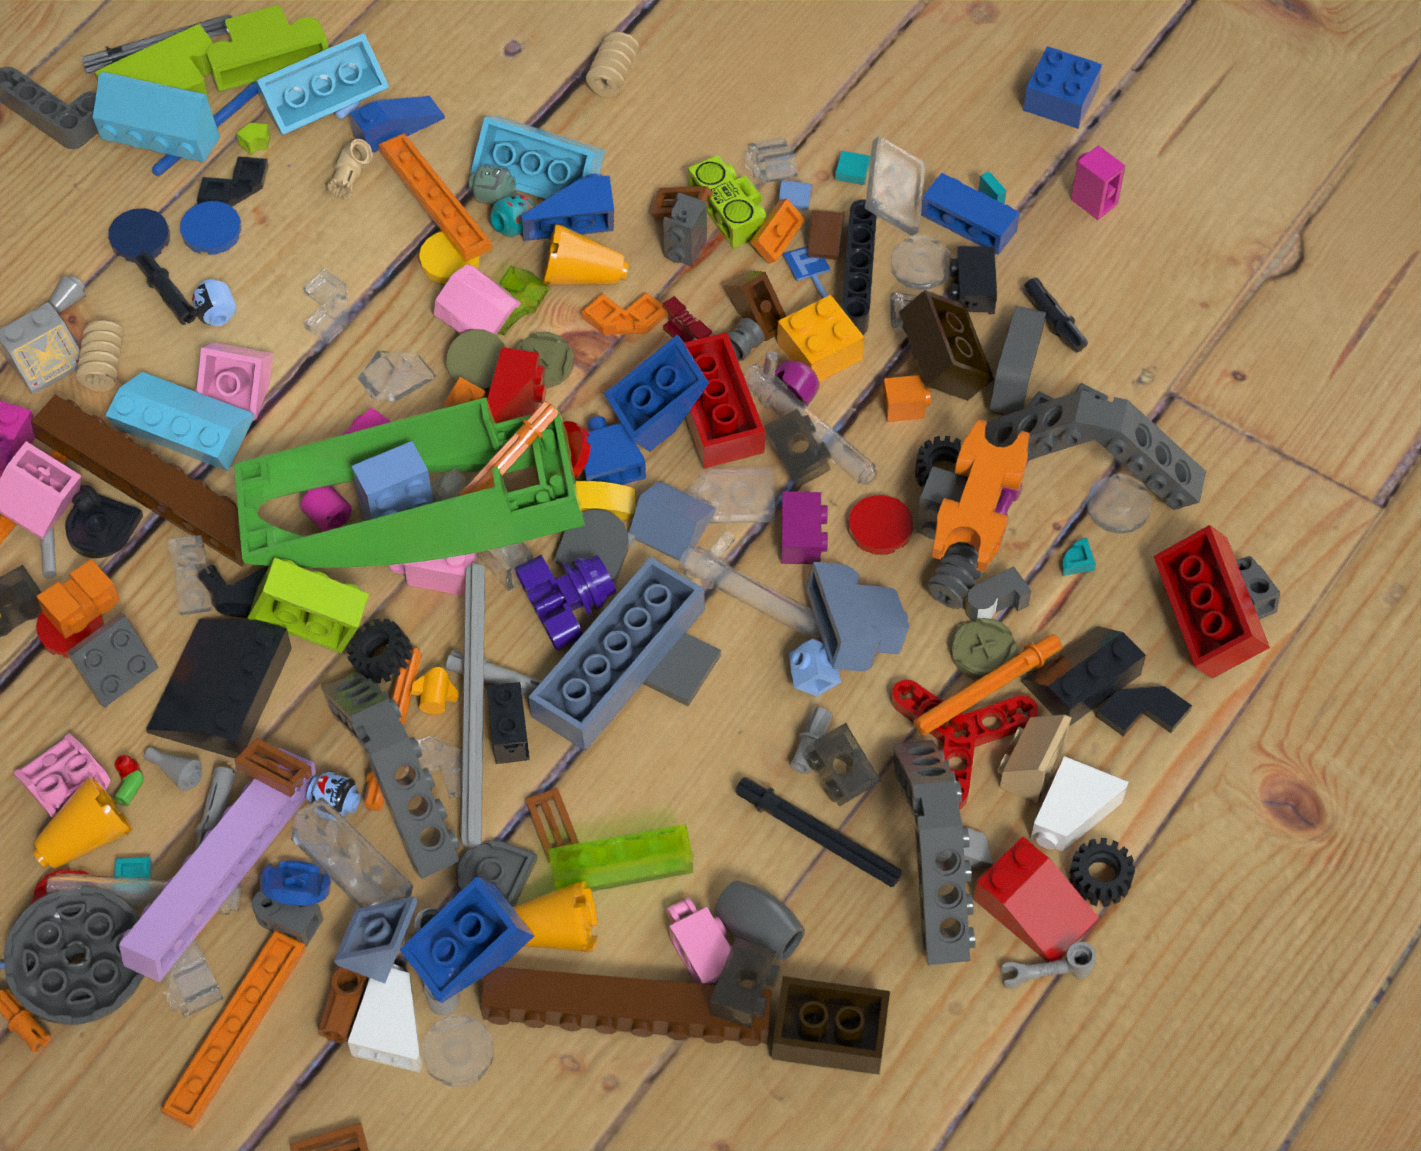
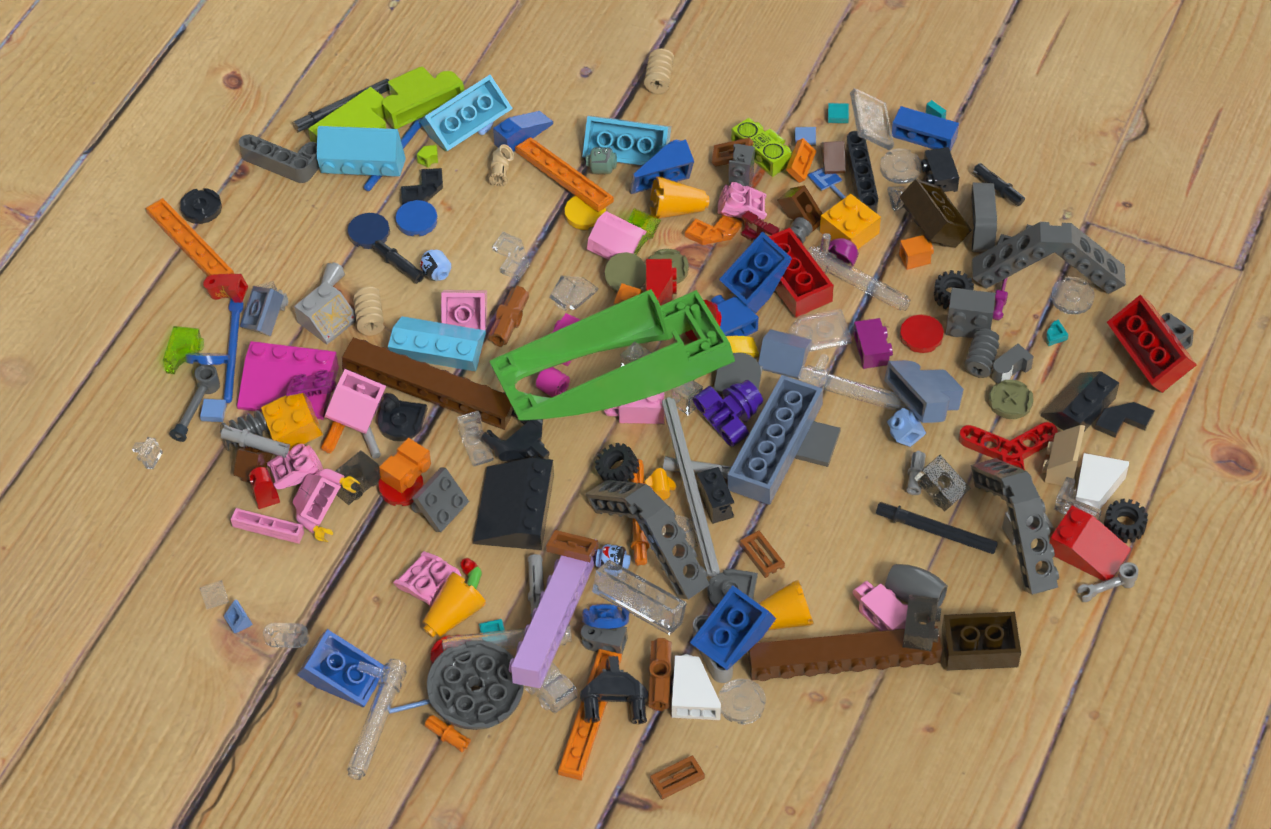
camera: 10 degrees left, 5 degrees down
(182, 771) = (505, 561): light grey cone -> none
(273, 994) = (614, 686): none -> black connector
(295, 397) = (509, 316): none -> dark orange piece
(309, 604) = (565, 441): lime brick -> none
(375, 938) = (674, 637): sand blue slope -> none
(392, 482) = (599, 355): medium blue brick -> none
(507, 214) = (620, 177): teal head -> none
(513, 447) = (676, 319): orange axle -> none
(623, 859) = (817, 564): clear neon green brick -> none
(675, 276) = (738, 199): none -> bright pink slope
(771, 160) = (785, 115): clear brick -> none
(801, 466) = (859, 305): clear smoke brick -> none
(974, 517) = (988, 313): orange piece -> none
(1019, 824) = (1065, 500): none -> clear bracket
(1030, 657) = (1043, 398): orange axle -> none
(1062, 87) = (963, 40): blue brick -> none
(1097, 182) = (1004, 96): dark pink brick -> none

